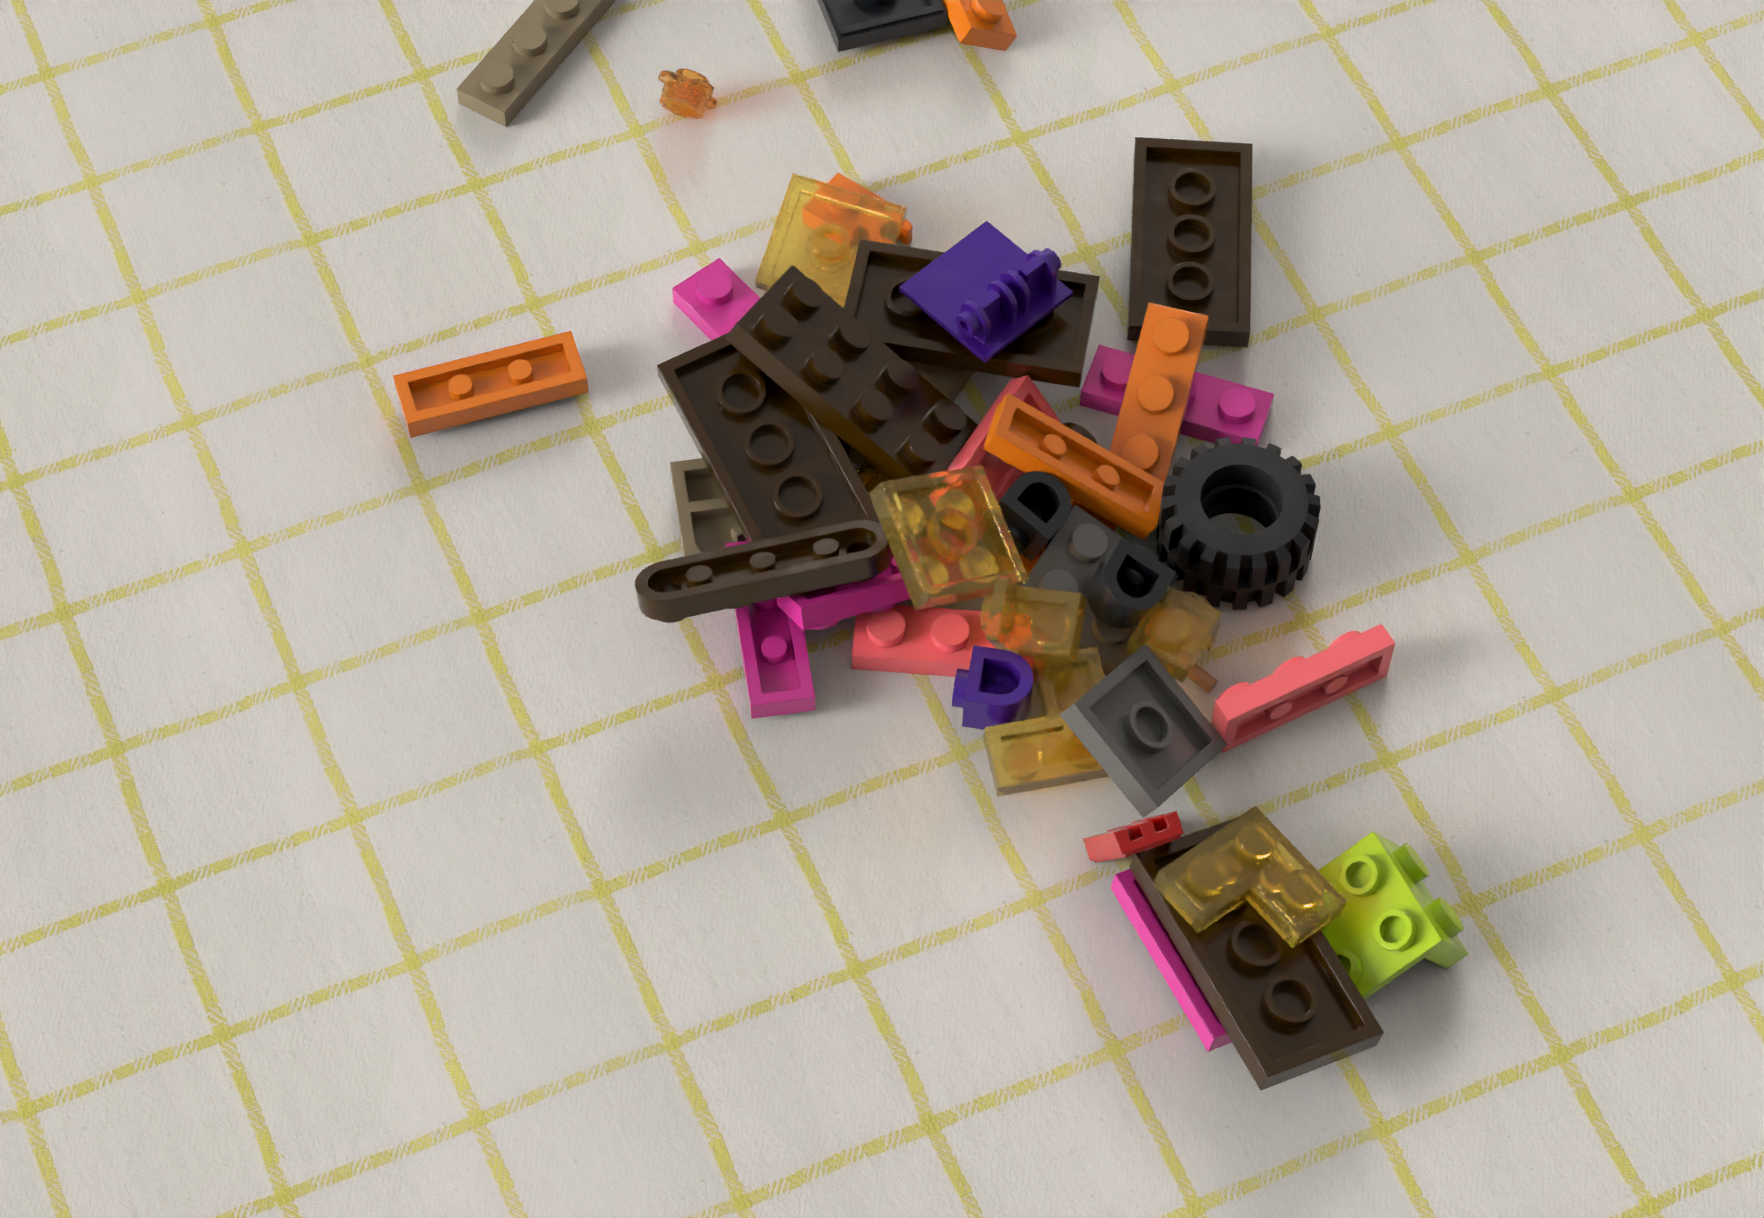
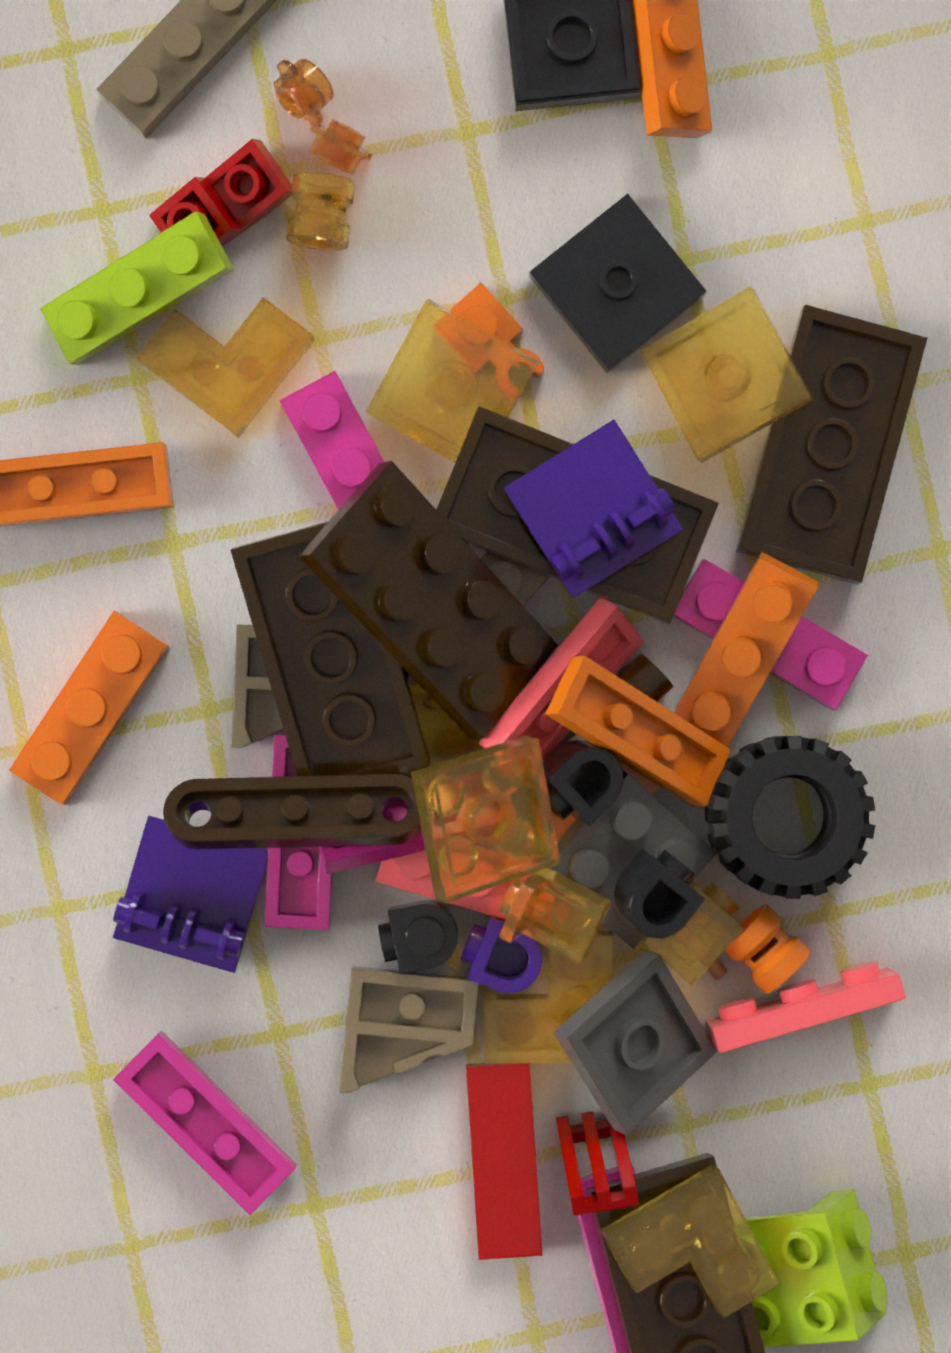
camera: 10 degrees right, 30 degrees up
(522, 221) = (137, 288): none -> lime plate
(537, 566) = (89, 708): none -> orange plate
(597, 151) = (230, 196): none -> red slope
(620, 286) = (233, 379): none -> clear yellow plate
(644, 58) = (303, 90): none -> clear orange plate
(670, 704) = (189, 898): none -> dark purple hinge
(678, 150) = (320, 211): none -> clear yellow wheel
(727, 897) = (205, 1122): none -> dark pink plate
(906, 692) = (418, 935): none -> black plate
(909, 772) = (402, 1022): none -> dark tan wing
(962, 159) = (617, 283): none -> black plate
(1040, 884) = (504, 1160): none -> red tile
(1080, 199) = (726, 375): none -> clear yellow plate
(1248, 642) = (768, 949): none -> orange wheel

